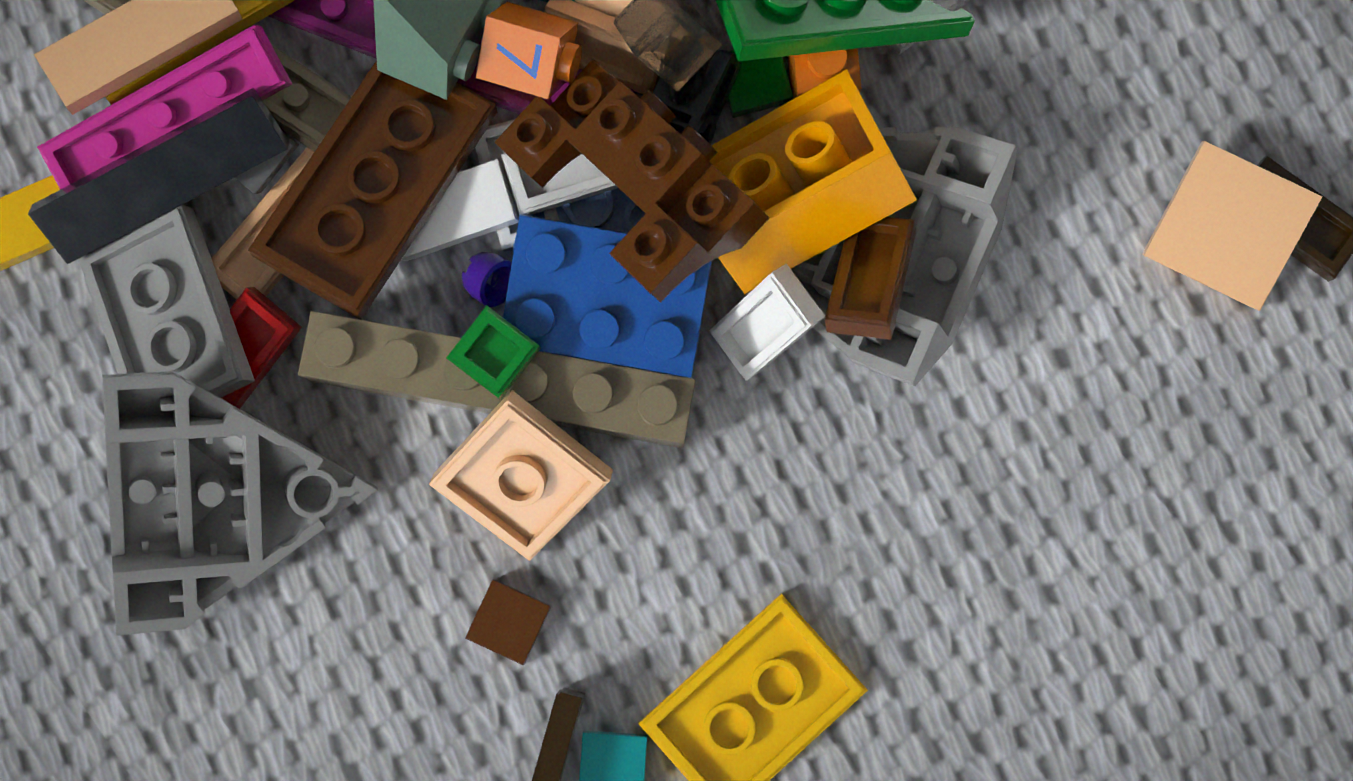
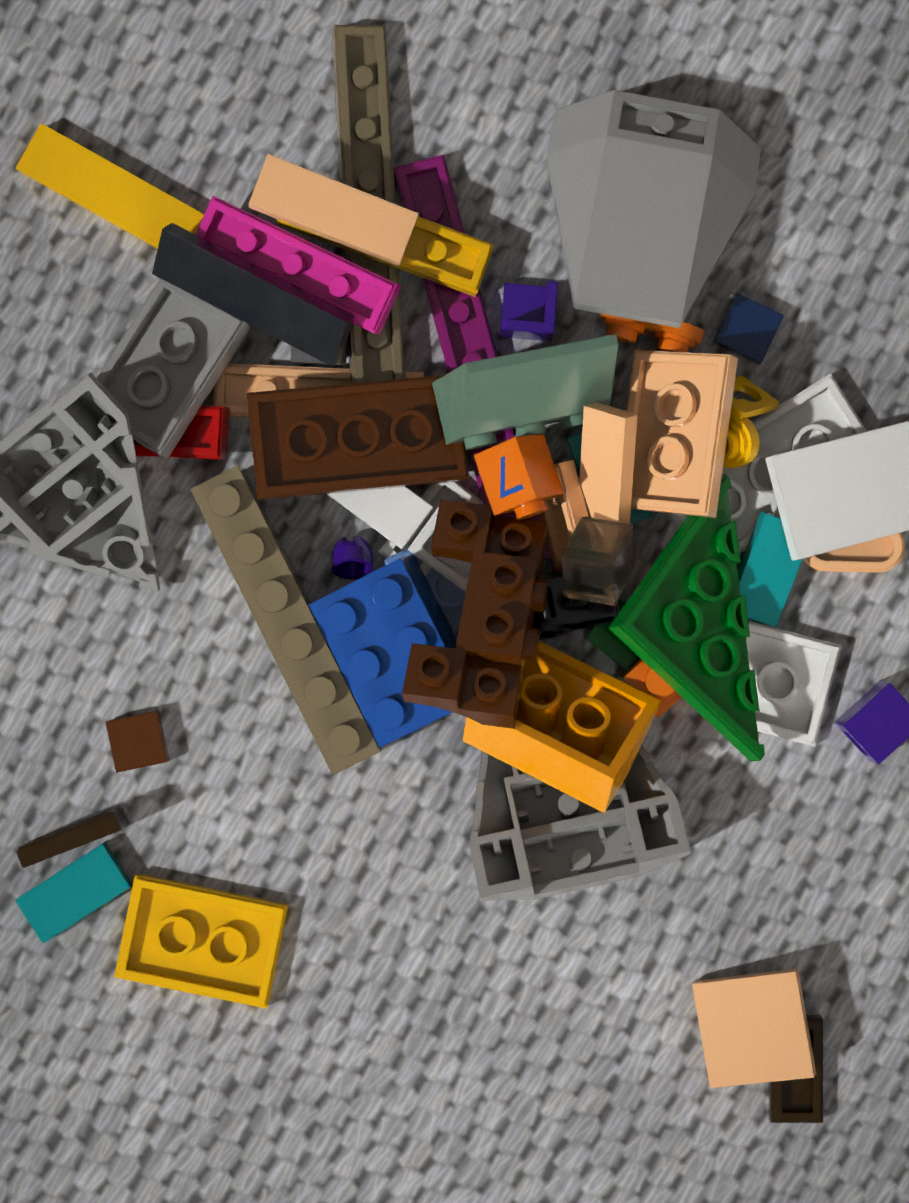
camera: 55 degrees right, 5 degrees up
(493, 352) = (296, 609): green tile -> none
(521, 476) = (234, 682): light nougat tile -> none
(767, 322) = (454, 769): white tile -> none
(871, 279) = (531, 820): reddish brown tile -> none

